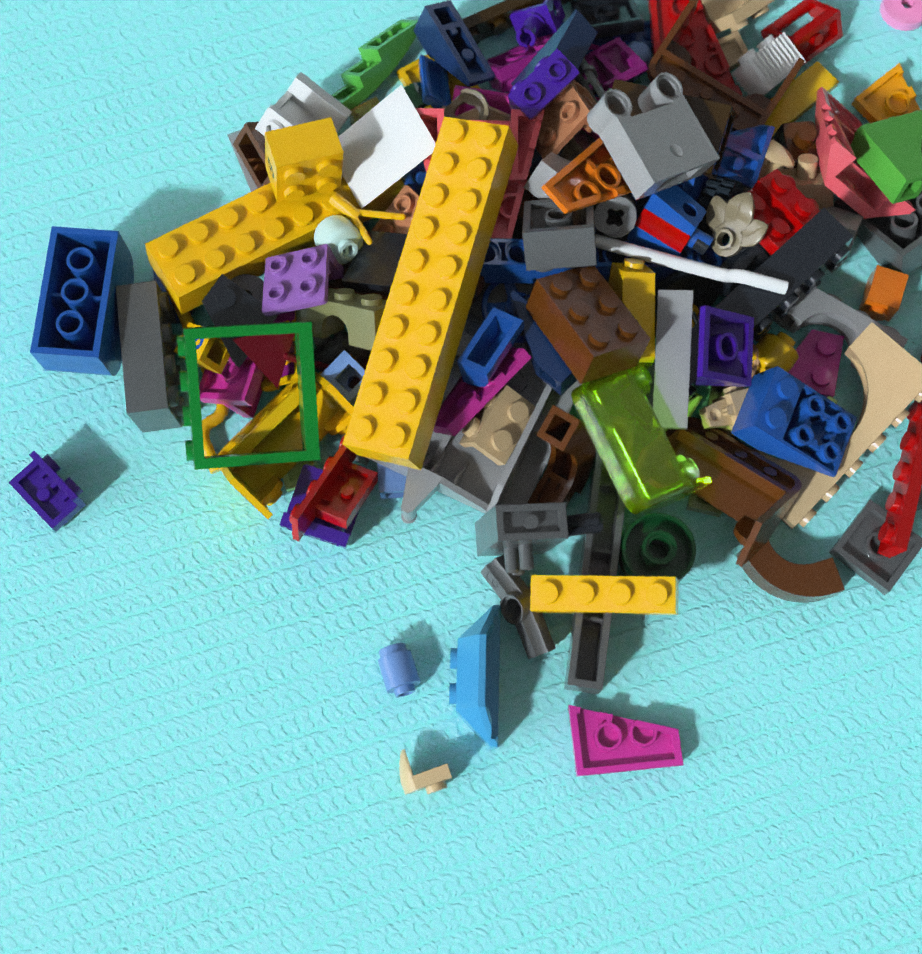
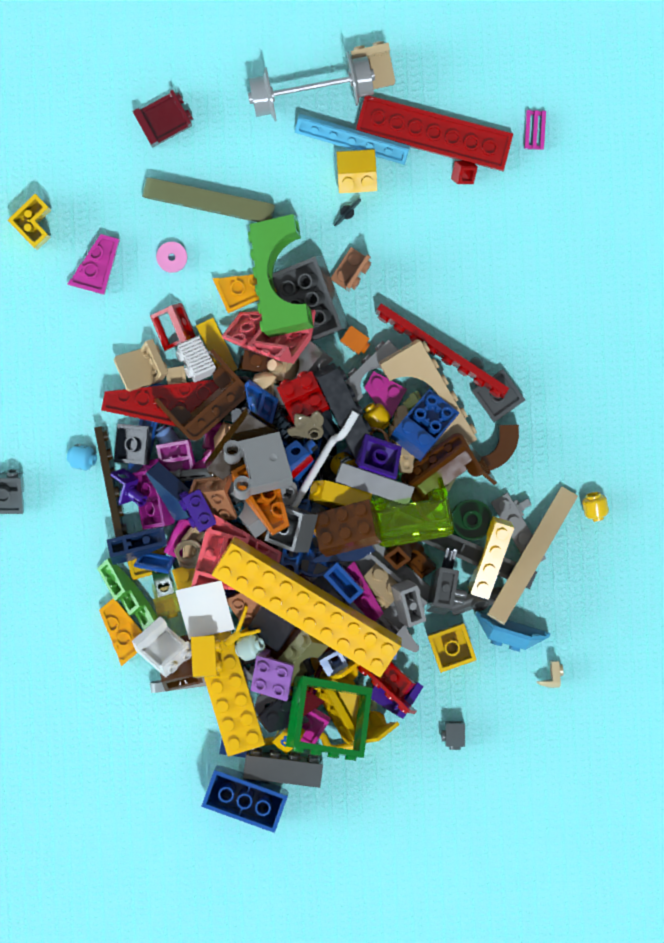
camera: 75 degrees left, 15 degrees up
(47, 492) = (343, 841): dark purple bracket -> none
(273, 629) = (454, 734): none -> dark grey brick
(321, 65) = (121, 629): none -> light orange wing
(398, 670) = (494, 673): medium blue brick -> none
(425, 580) = (451, 647): none -> yellow brick
(484, 468) = (408, 603): none -> light grey brick
(619, 744) = (565, 567): dark pink wing -> none
(626, 672) = (532, 555): none -> tan tile
(640, 669) = (512, 512): none -> light grey hinge
(745, 769) = (595, 506): none -> yellow head

